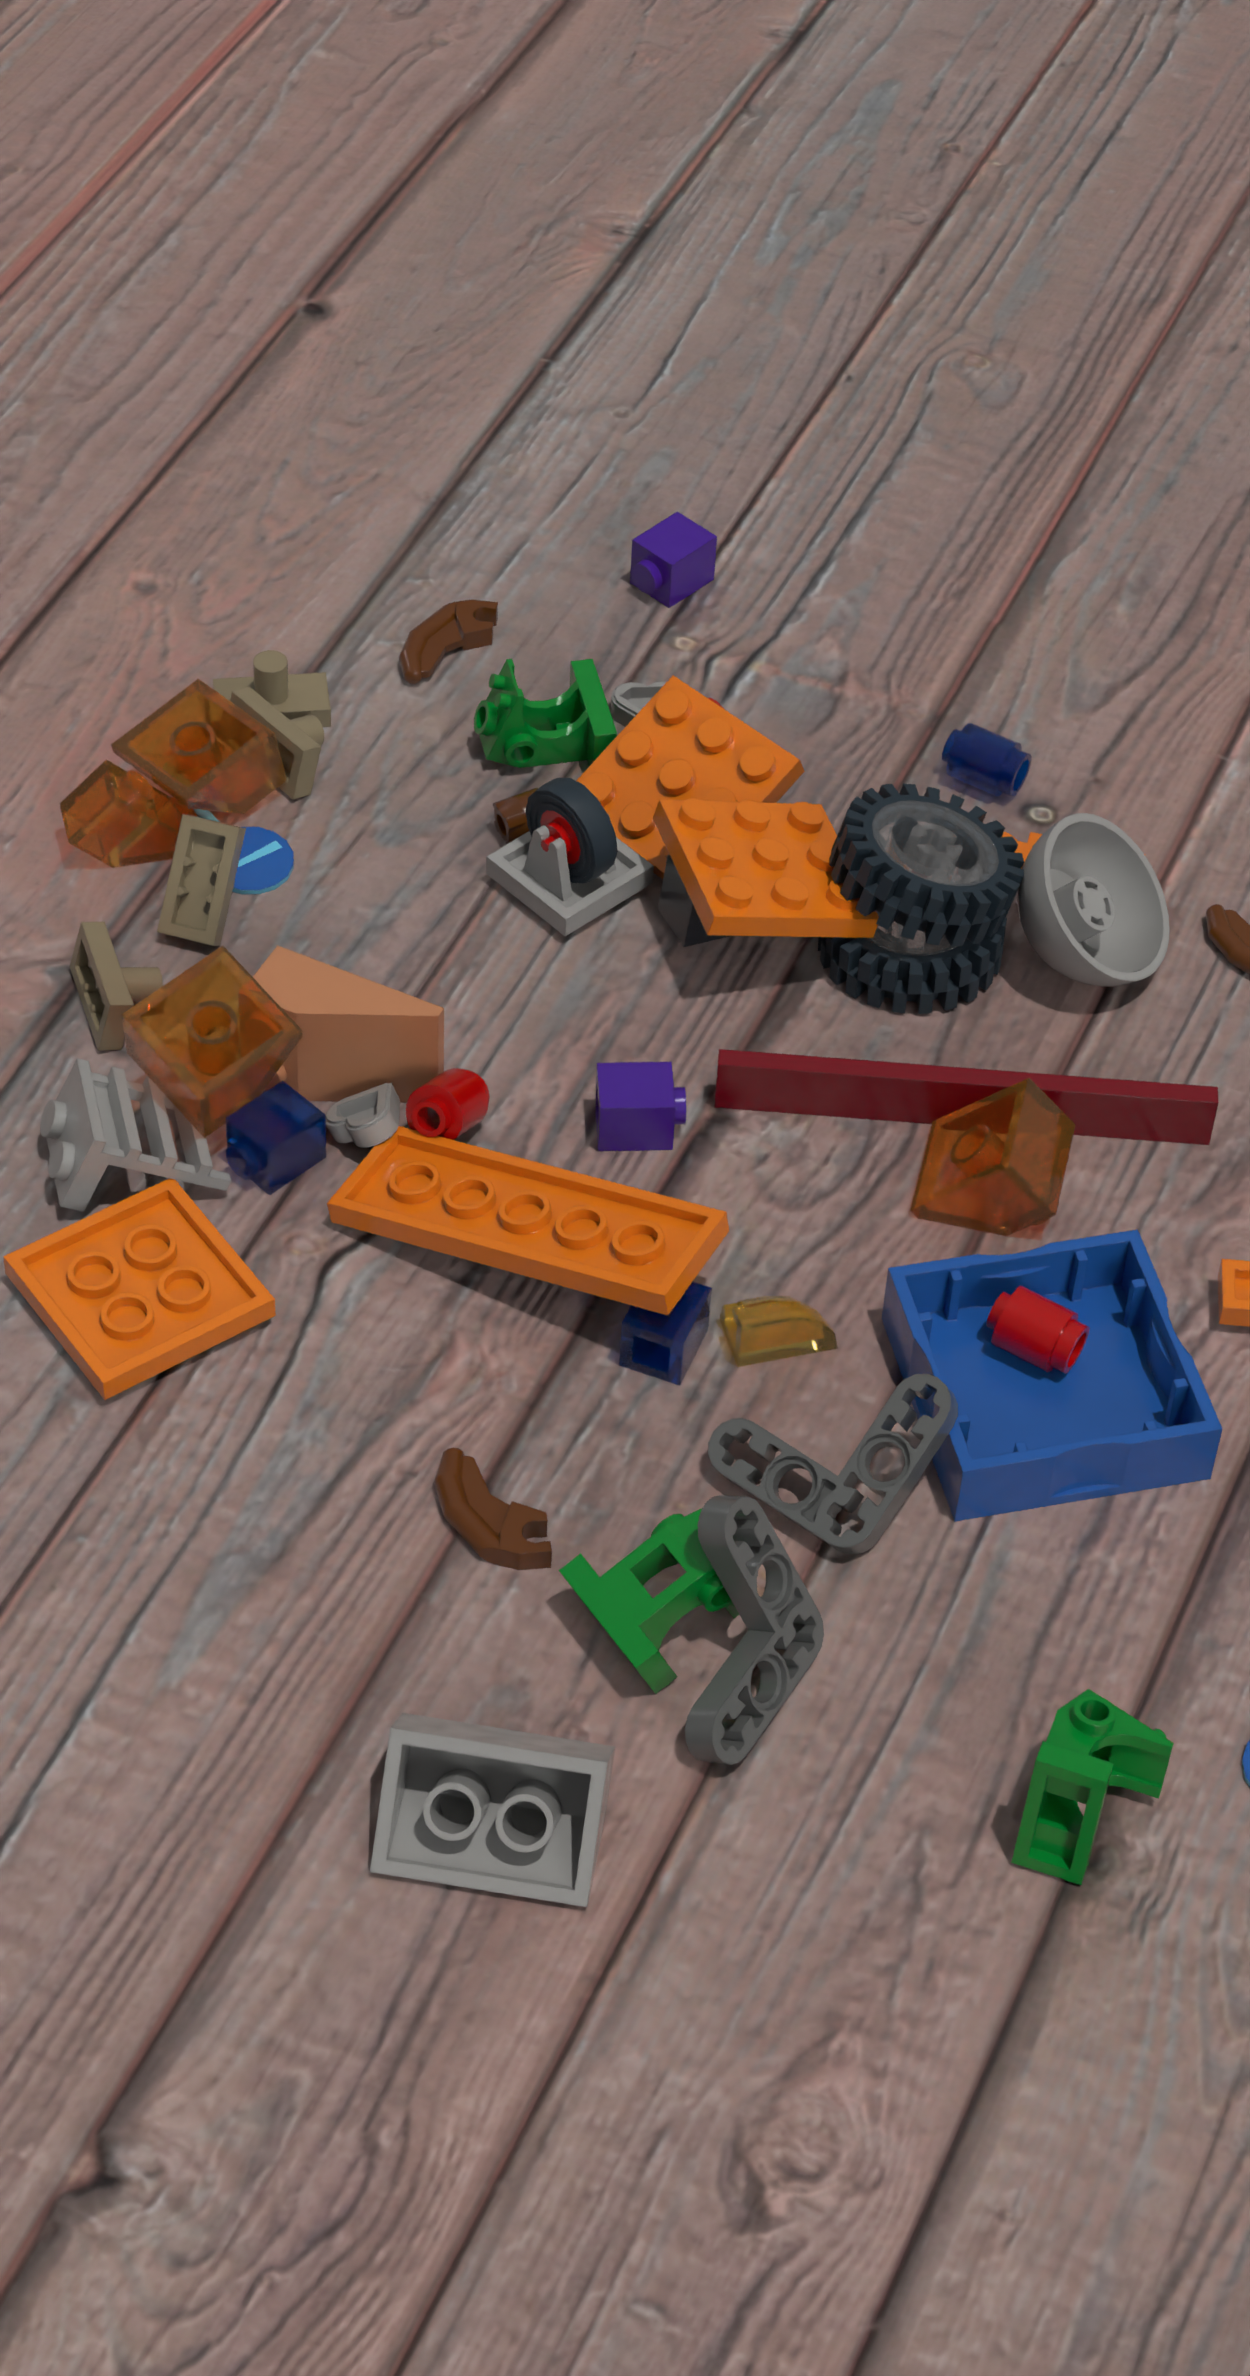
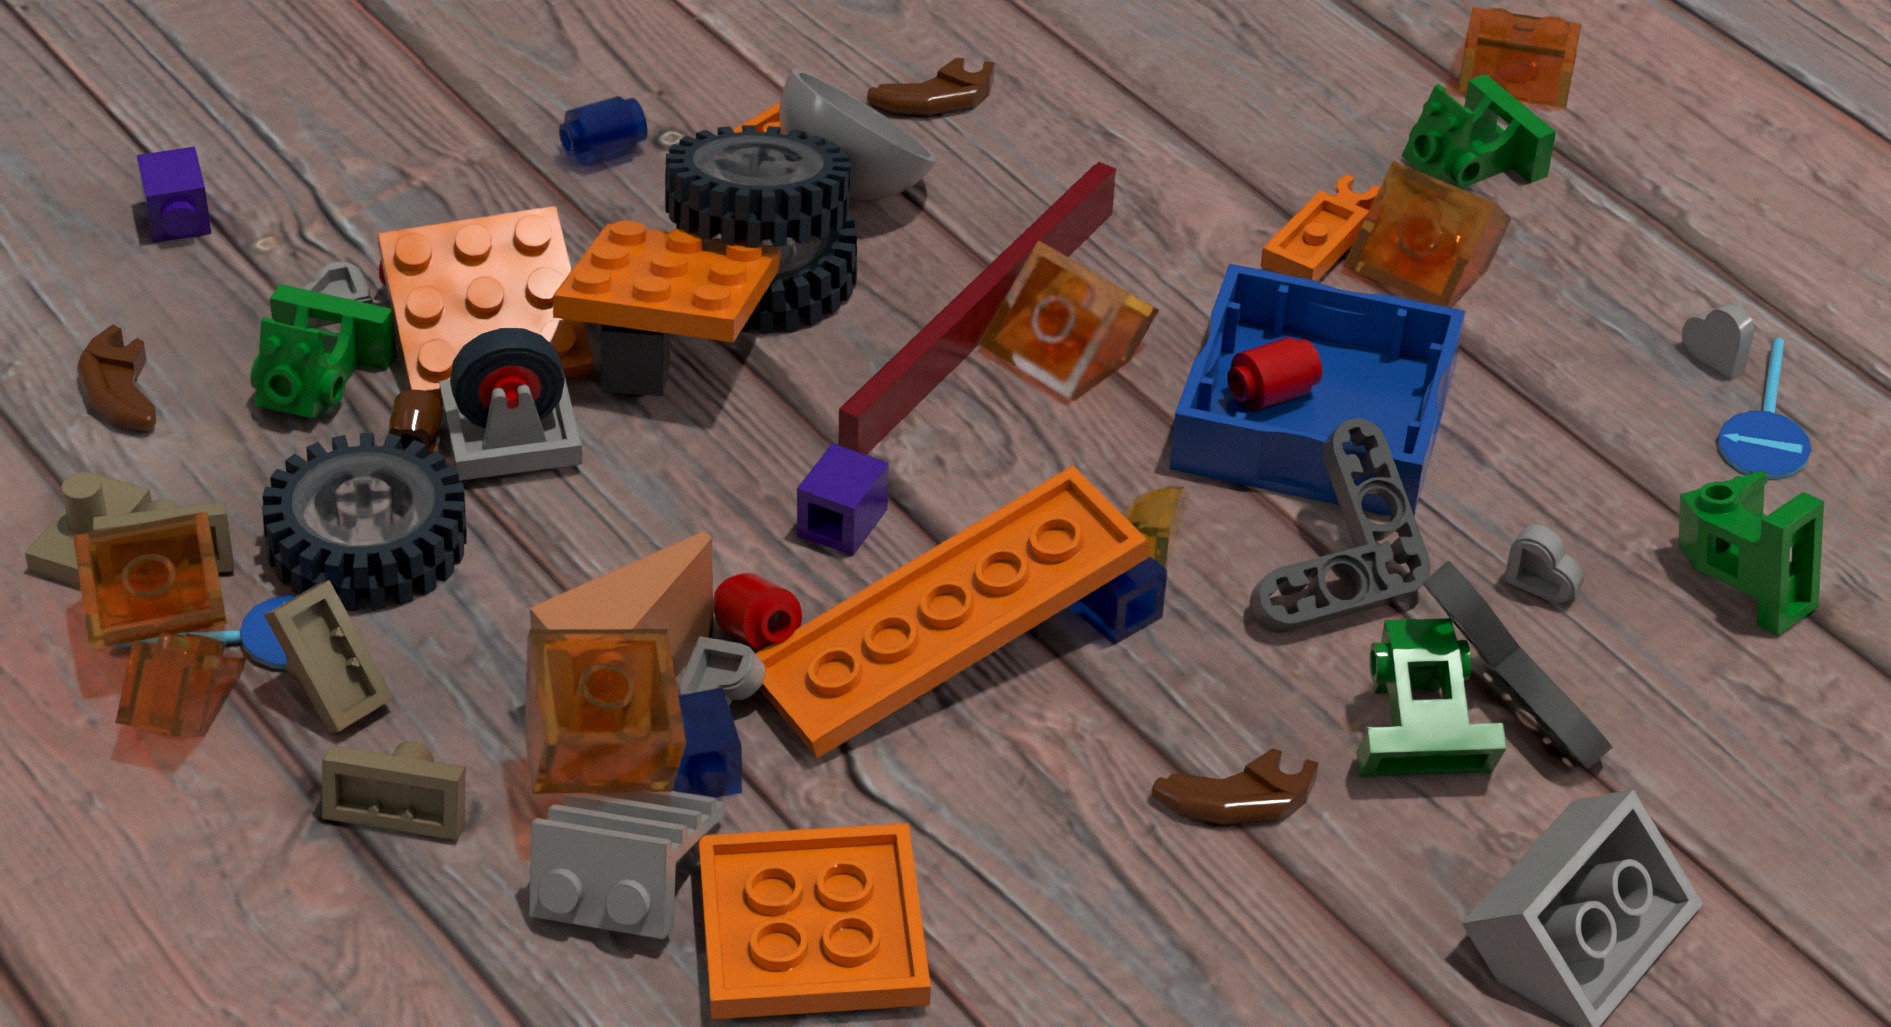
camera: 60 degrees left, 5 degrees down
(384, 838) = (363, 490): none -> black wheel
(936, 1629) = (1541, 566): none -> light grey tile

